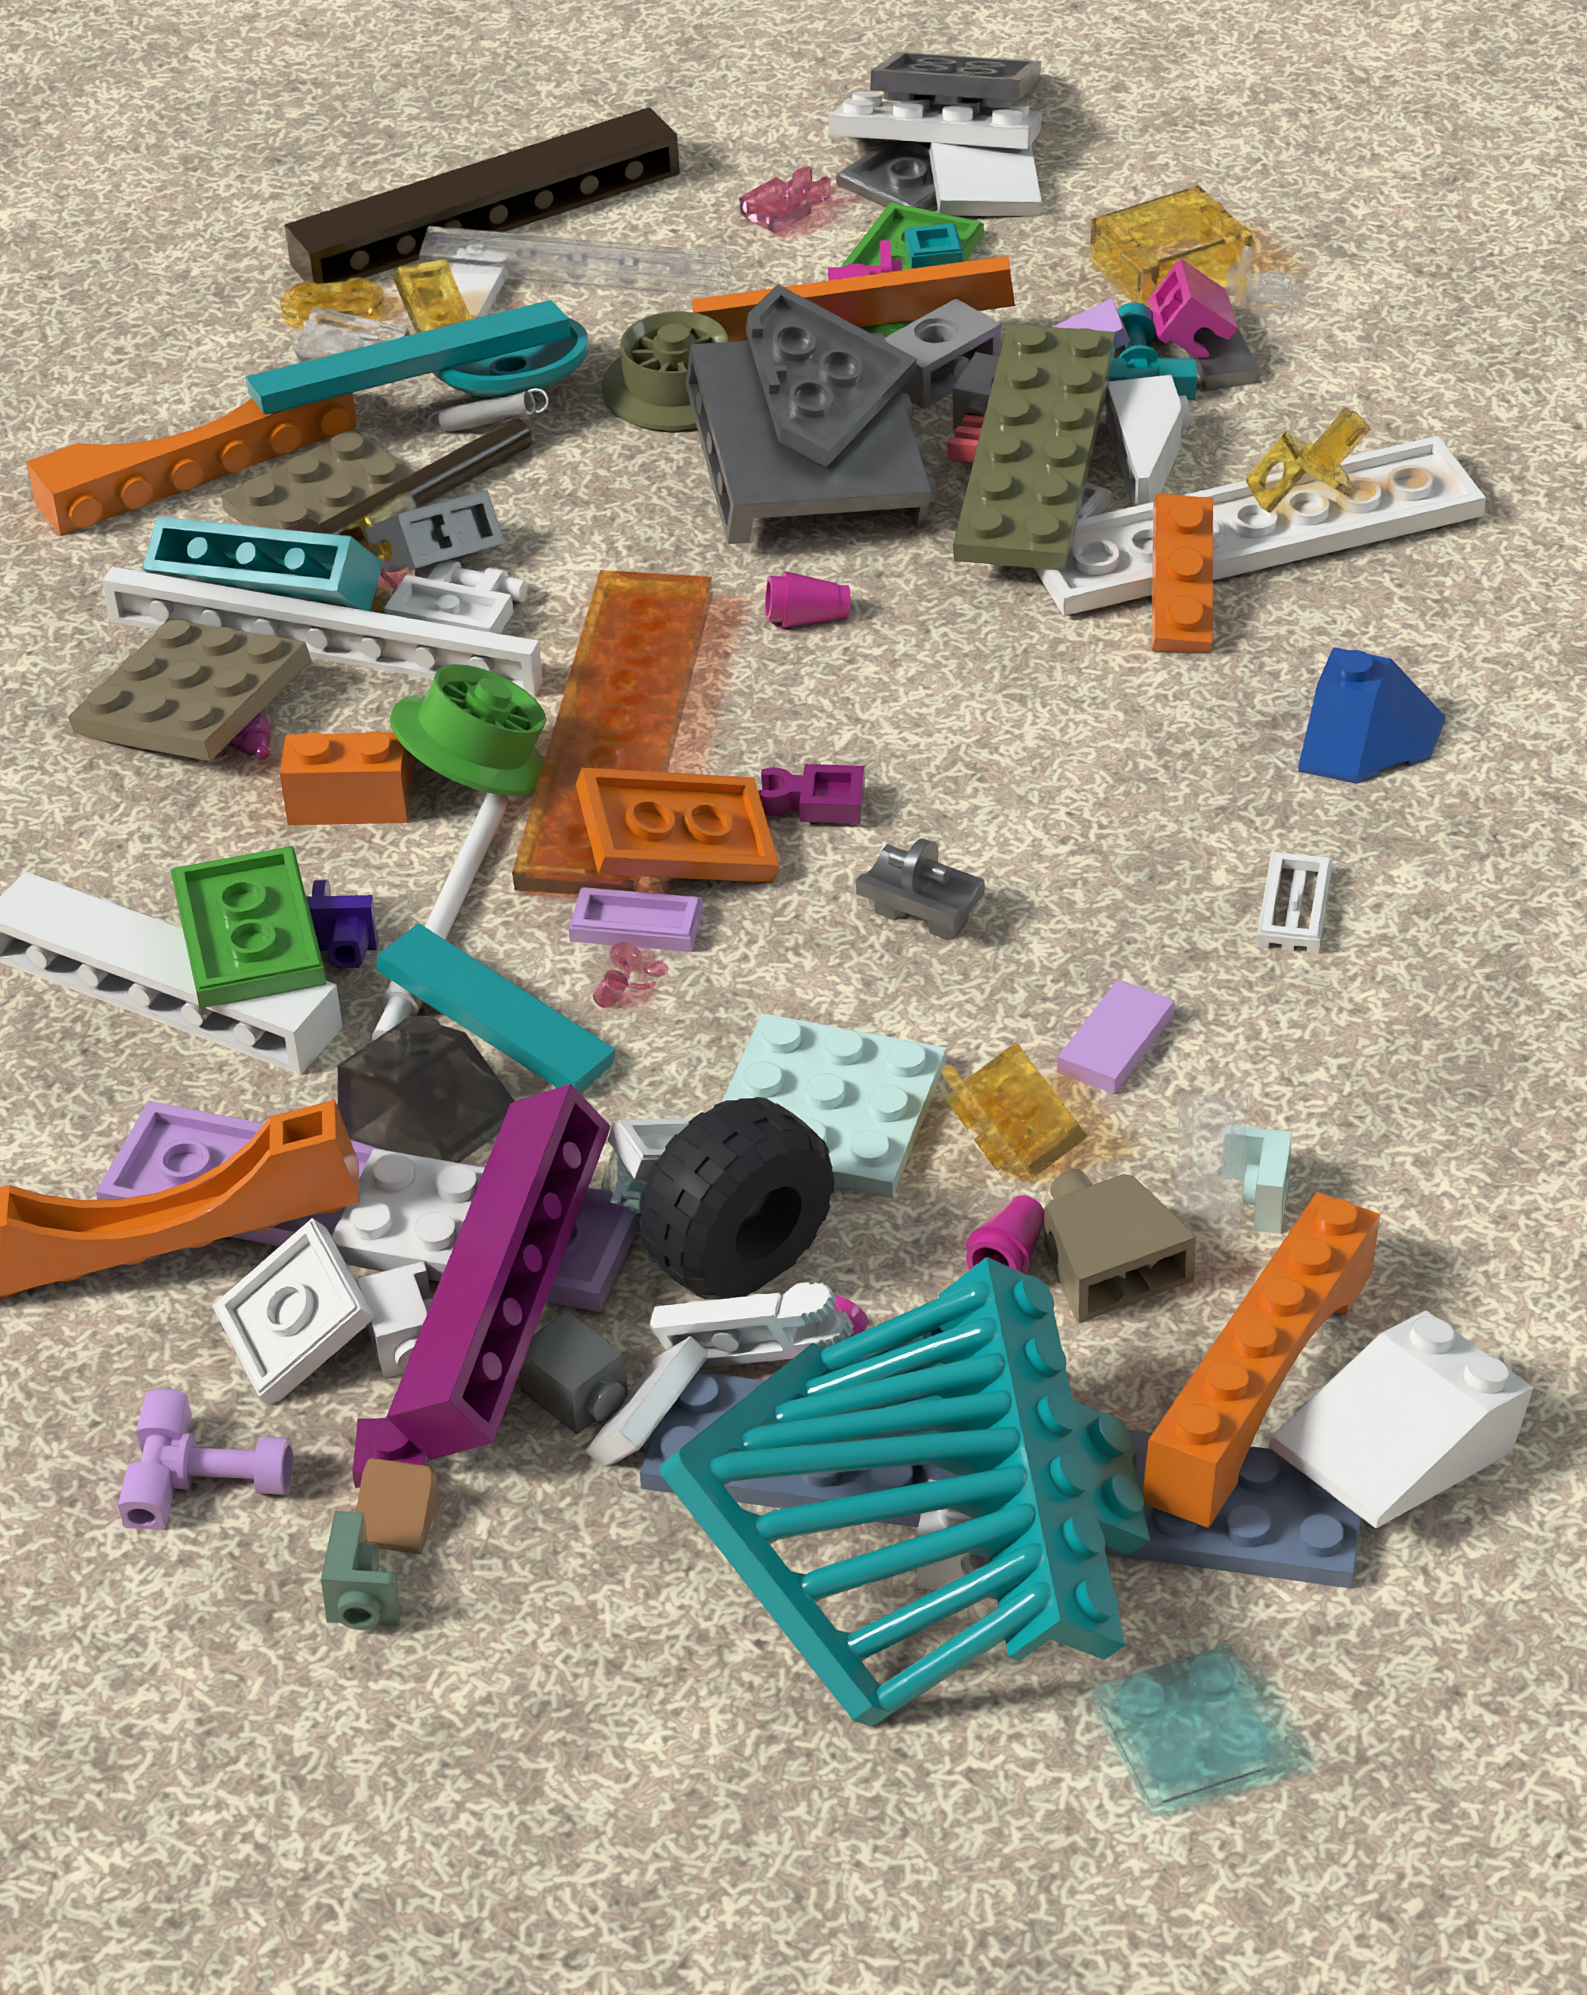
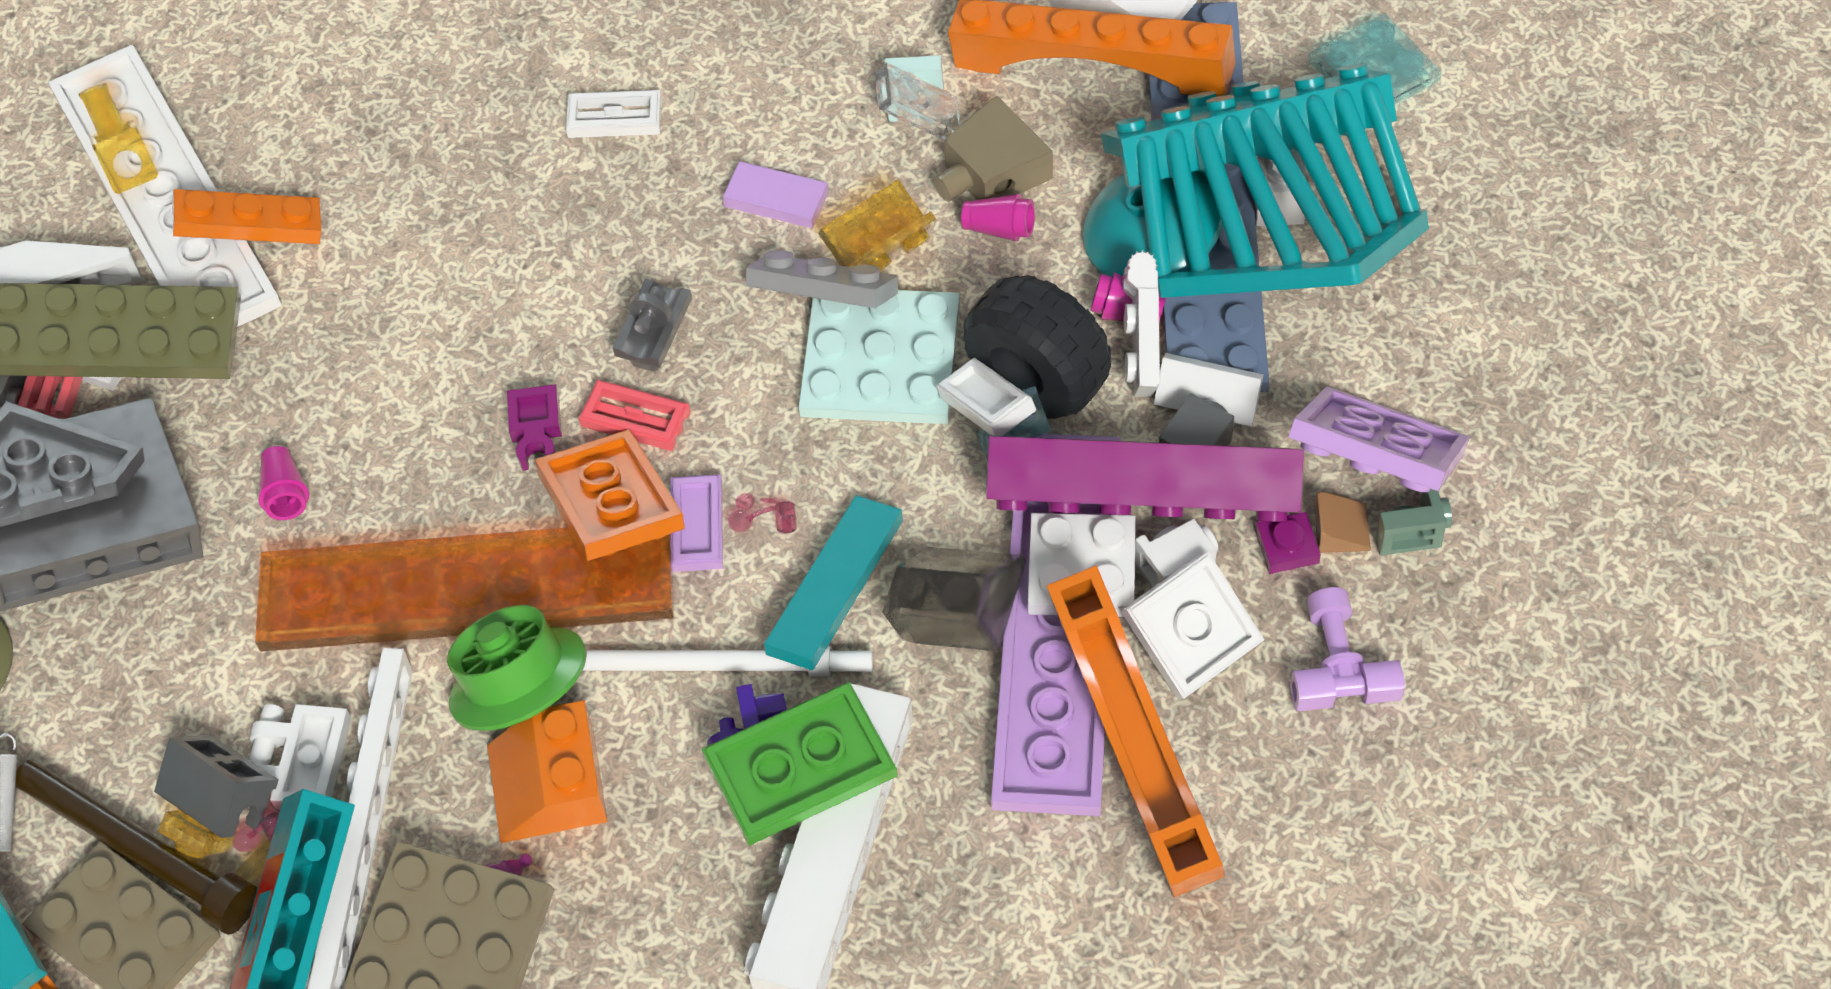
camera: 100 degrees left, 15 degrees up
(471, 1530) = (1379, 439): none -> lavender plate
(804, 917) = (645, 435): none -> coral tile
(934, 1037) = (822, 279): none -> light grey plate
(1367, 719) = (412, 95): blue slope -> none

